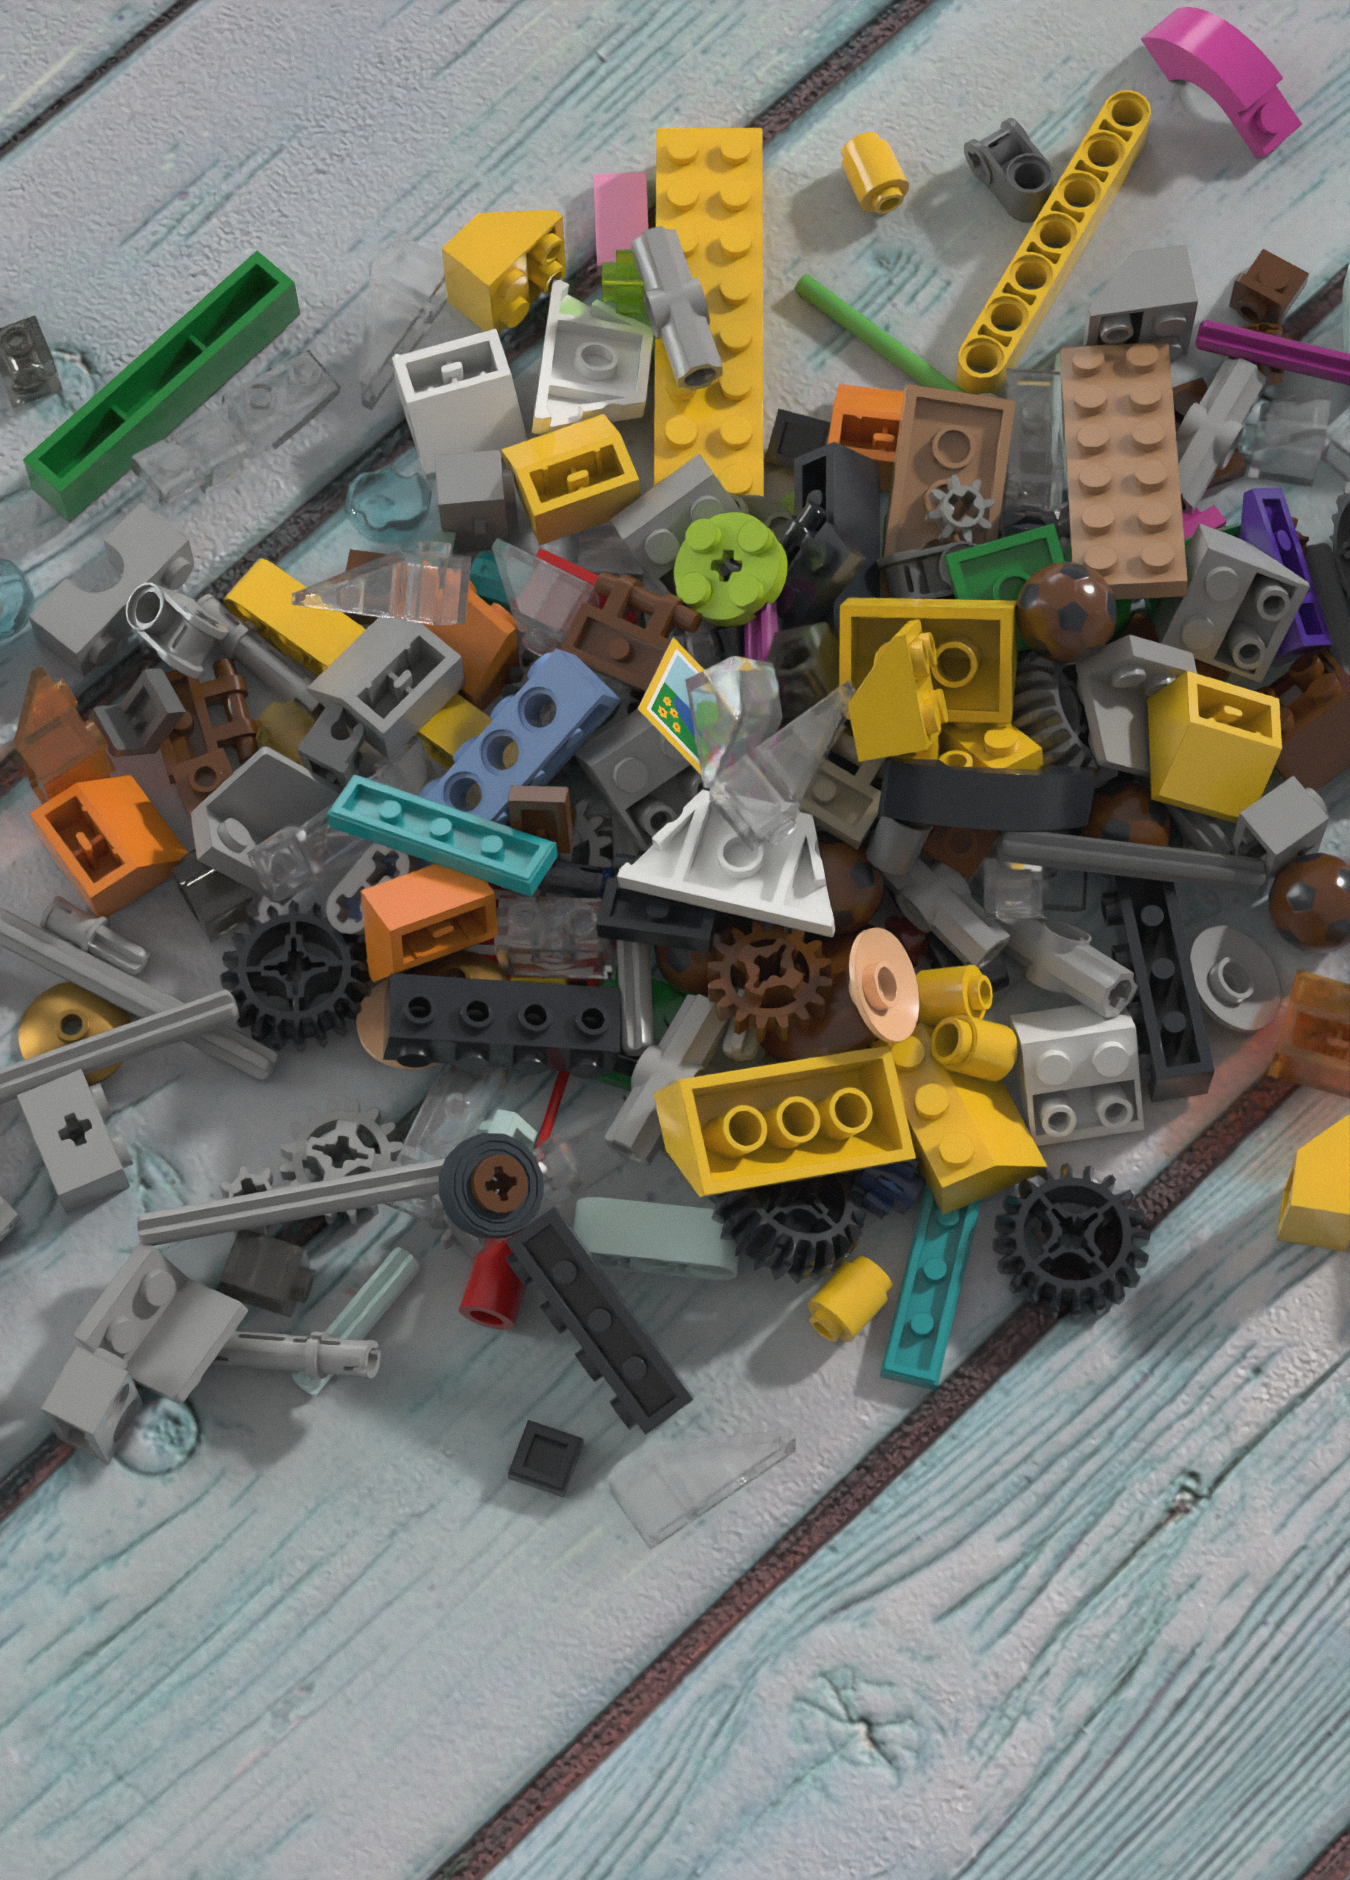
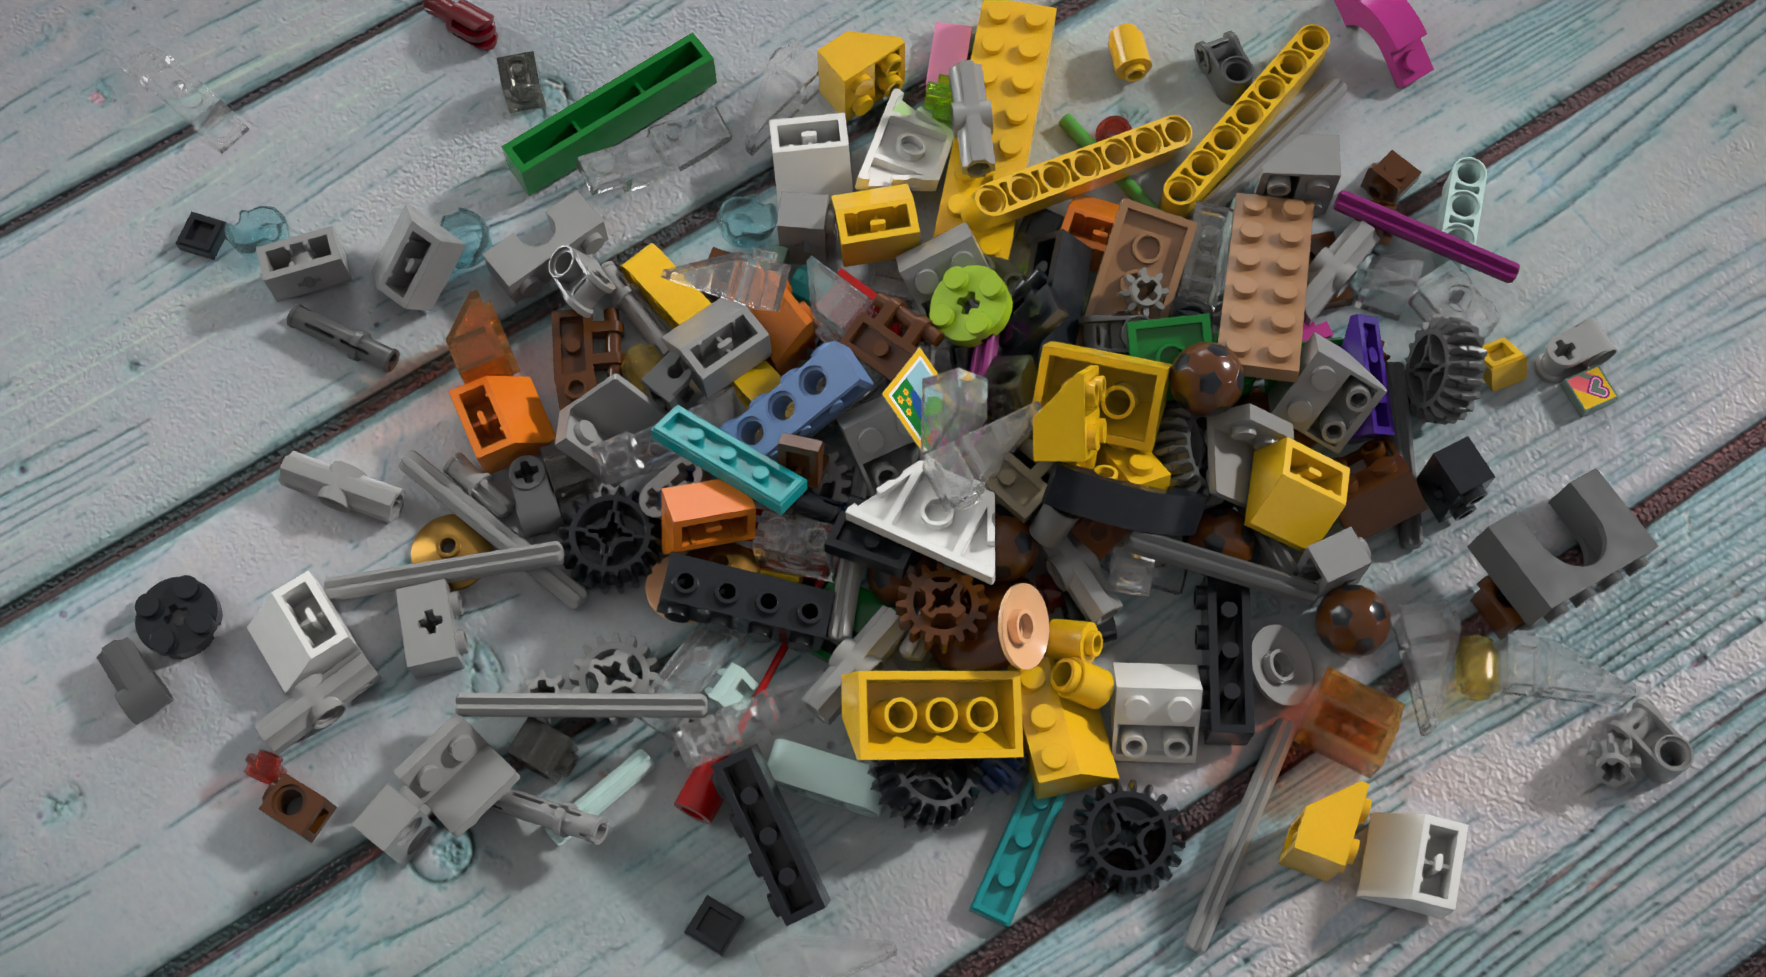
camera: 10 degrees right, 0 degrees up
(142, 718) = (542, 340): dark grey bracket -> none
(179, 943) = (535, 501): none -> dark grey piece
(470, 1193) = (693, 719): black wheel -> none
(849, 1300) = (956, 850): yellow brick -> none
(875, 279) = (1111, 125): none -> clear red plate
(898, 318) = (1097, 164): none -> yellow beam
(1064, 962) = (1159, 631): light grey piece -> none
(1107, 260) = (1297, 124): none -> light grey axle
(1220, 1211) = (1240, 836): none -> light grey axle

